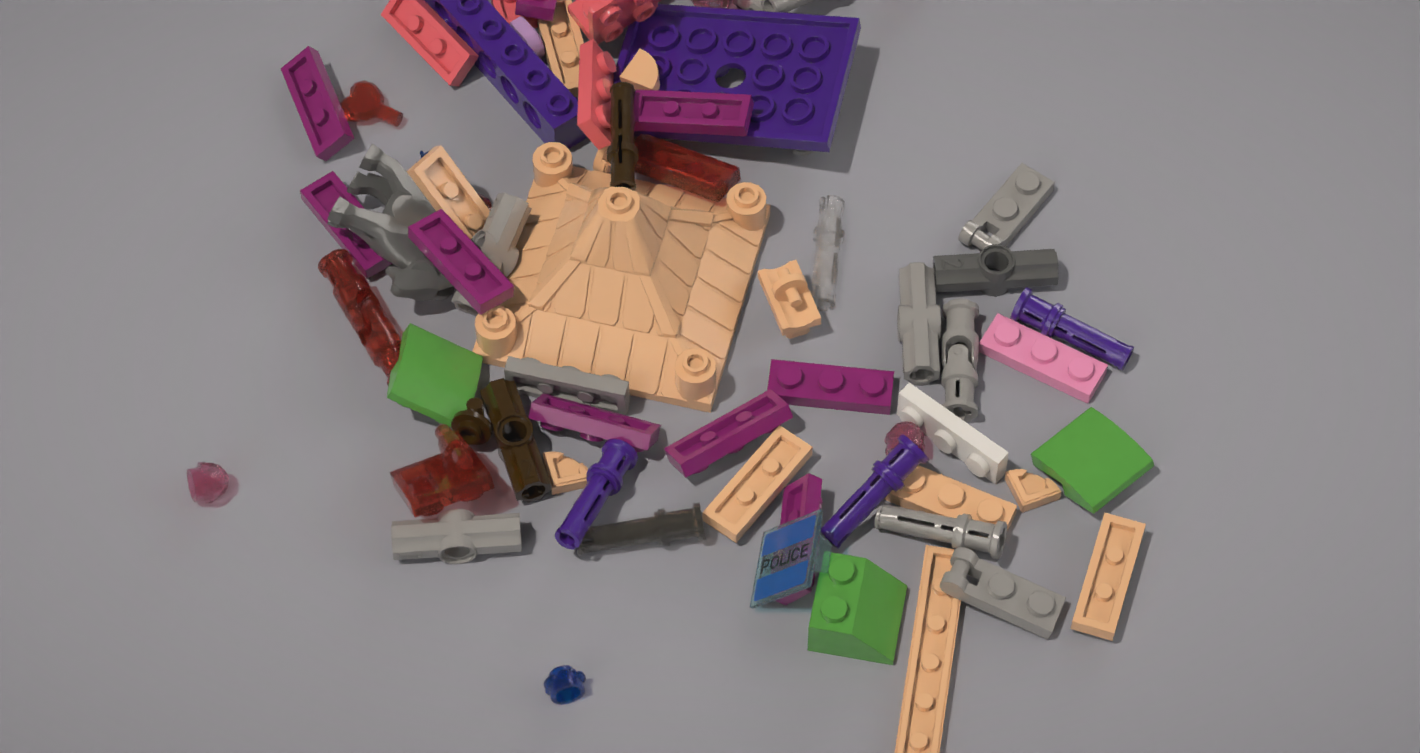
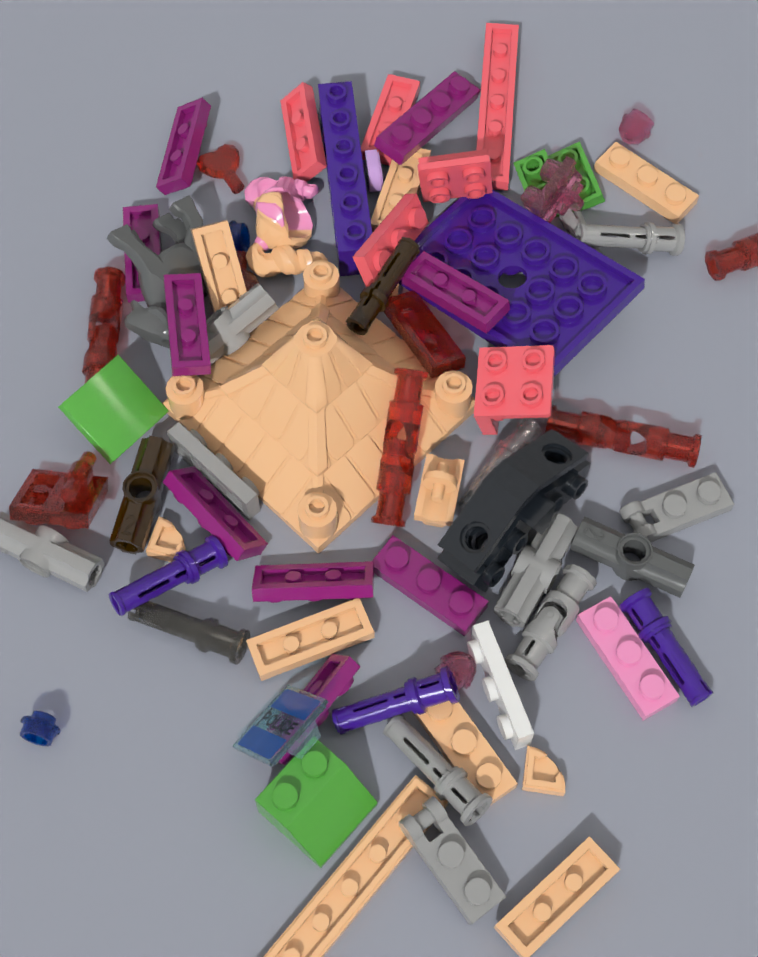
camera: 30 degrees right, 5 degrees up
(472, 132) = (281, 226): none -> hair
(472, 423) = (116, 463): dark brown plate -> none
(642, 72) = (441, 240): light nougat tile -> none
(740, 294) = (398, 455): none -> clear red piece
(800, 169) = (513, 384): none -> coral bracket
(869, 266) = (510, 501): none -> black brick
(902, 176) = (604, 432): none -> clear red piece
(1092, 460) = (610, 779): bright green slope -> none

